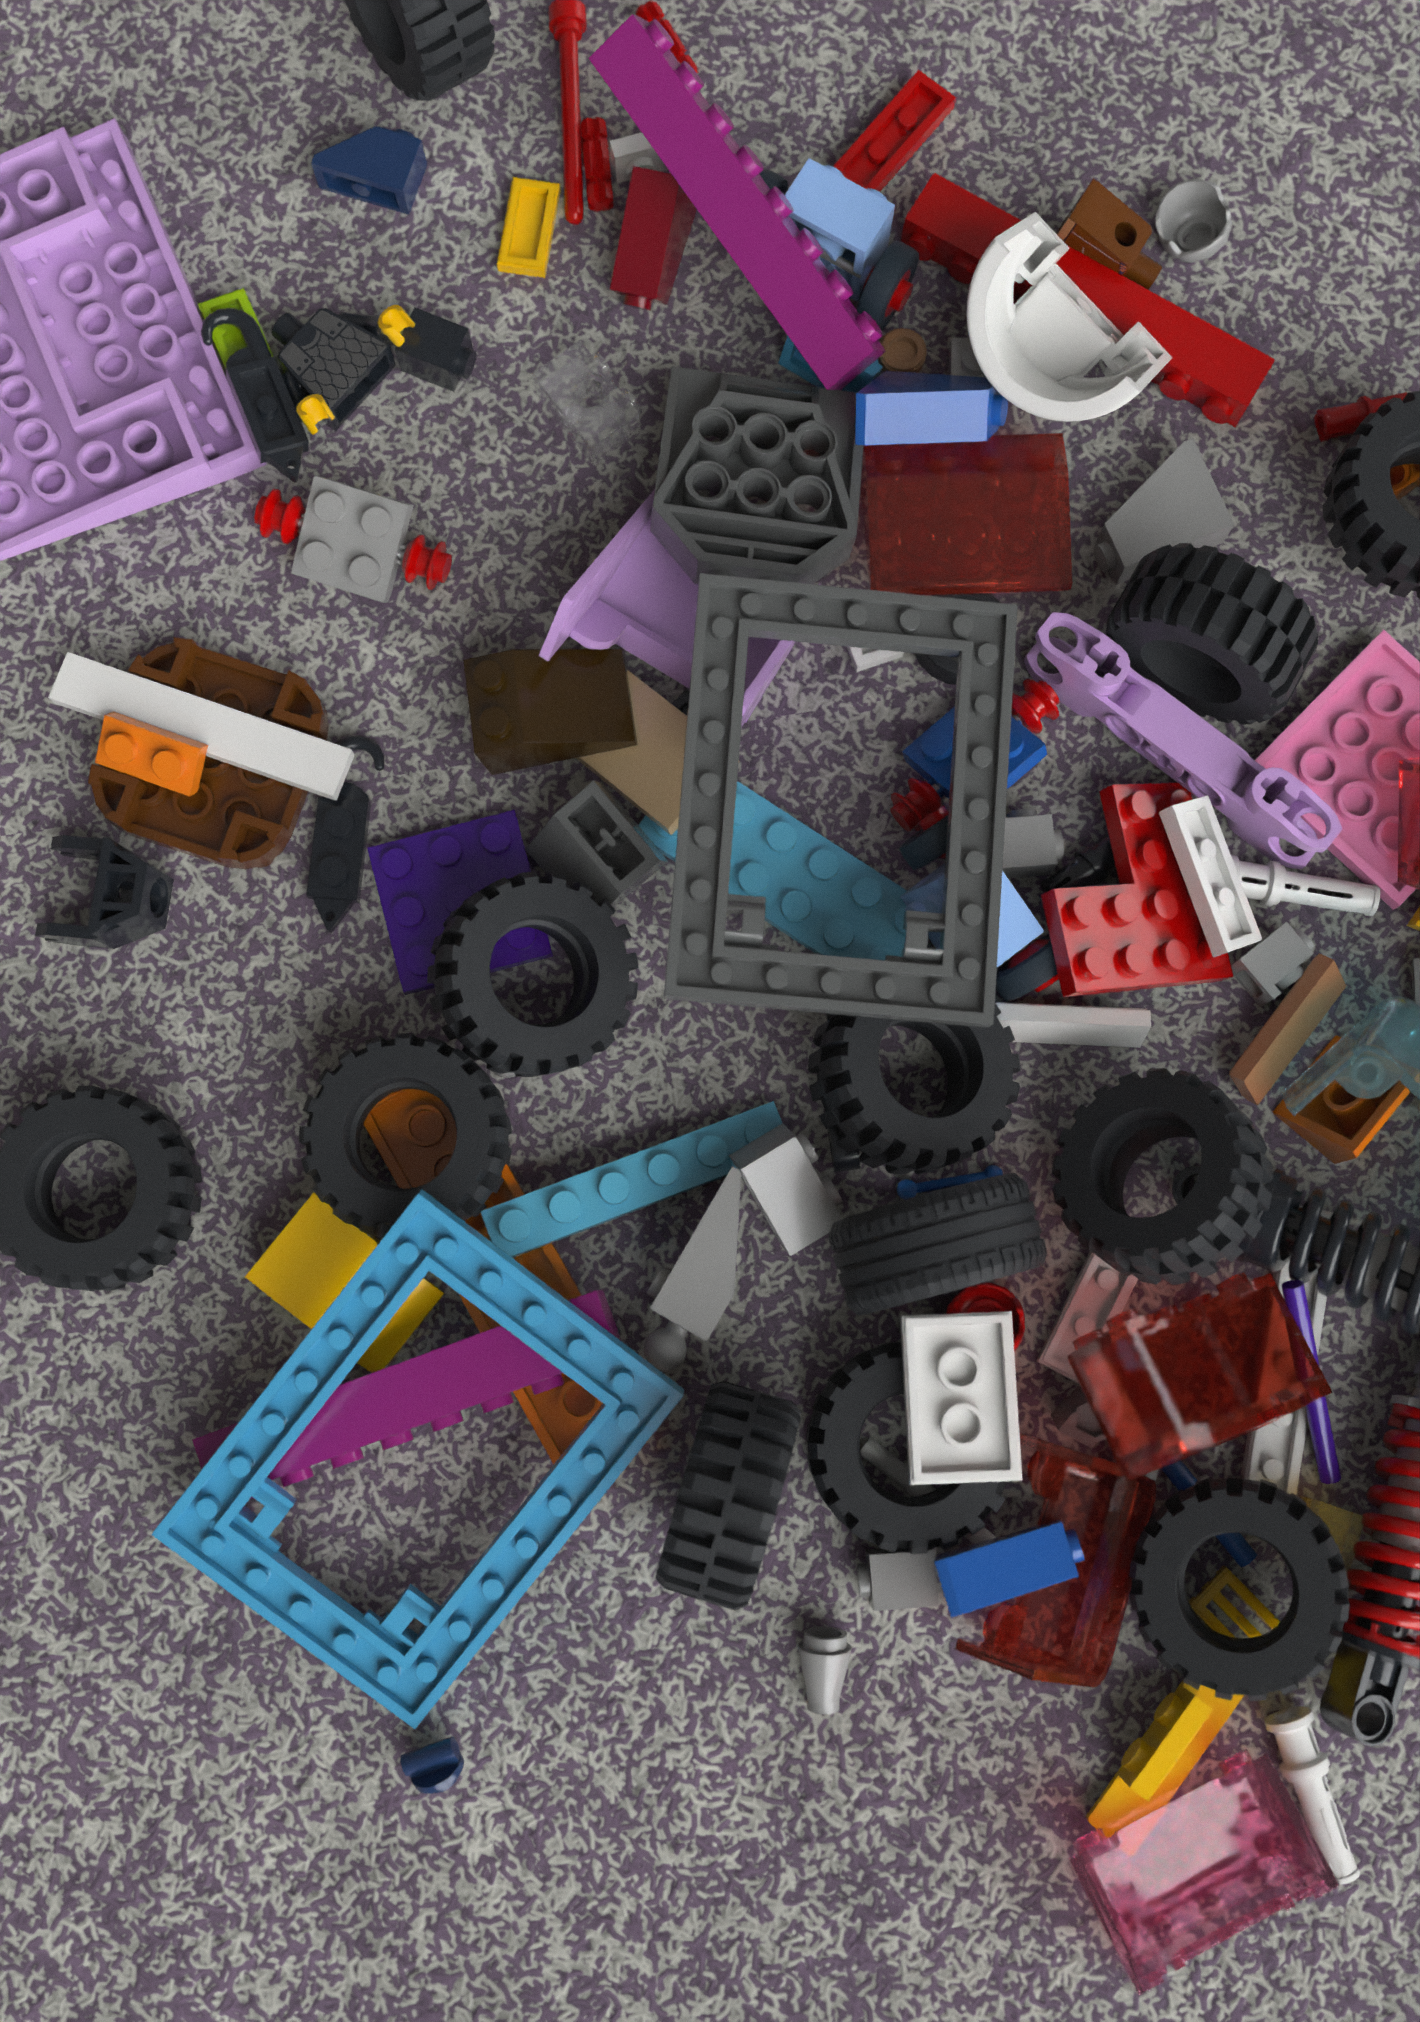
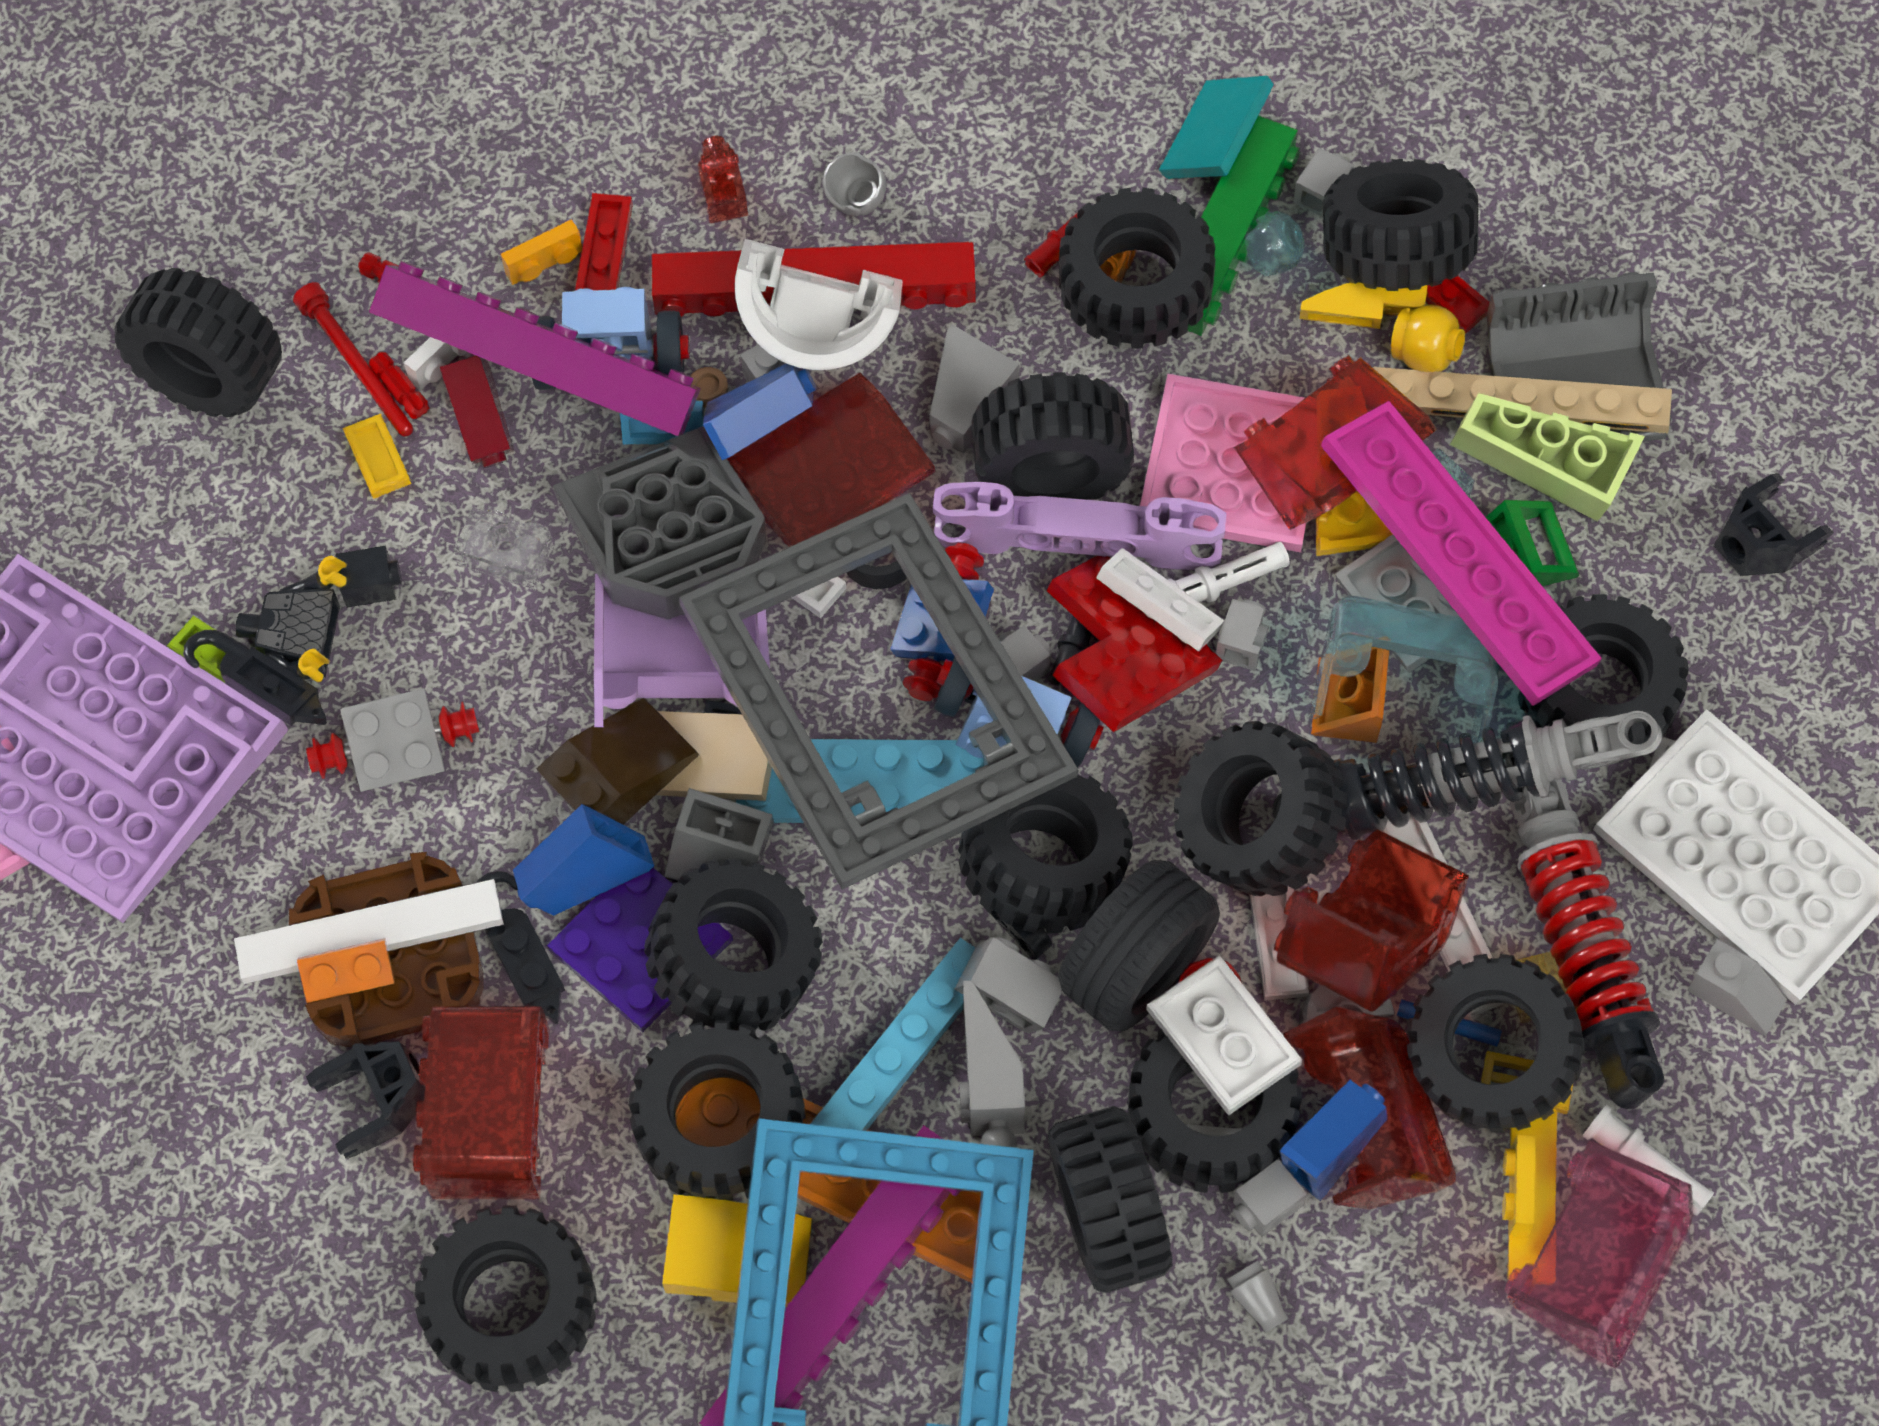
camera: 30 degrees left, 15 degrees down
(193, 970) = (481, 1102): none -> clear red windscreen
(374, 168) = (236, 479): dark blue slope -> none
(448, 785) = (581, 861): none -> blue slope
(826, 105) = (541, 252): none -> light orange plate
(1057, 133) = (721, 181): none -> clear red brick
(1075, 1024) = (1139, 754): white tile -> none
(1110, 234) = (803, 225): reddish brown torso -> none
(1287, 1029) = (1283, 668): nougat tile -> none
(1316, 1412) = (1469, 901): dark purple bar -> none

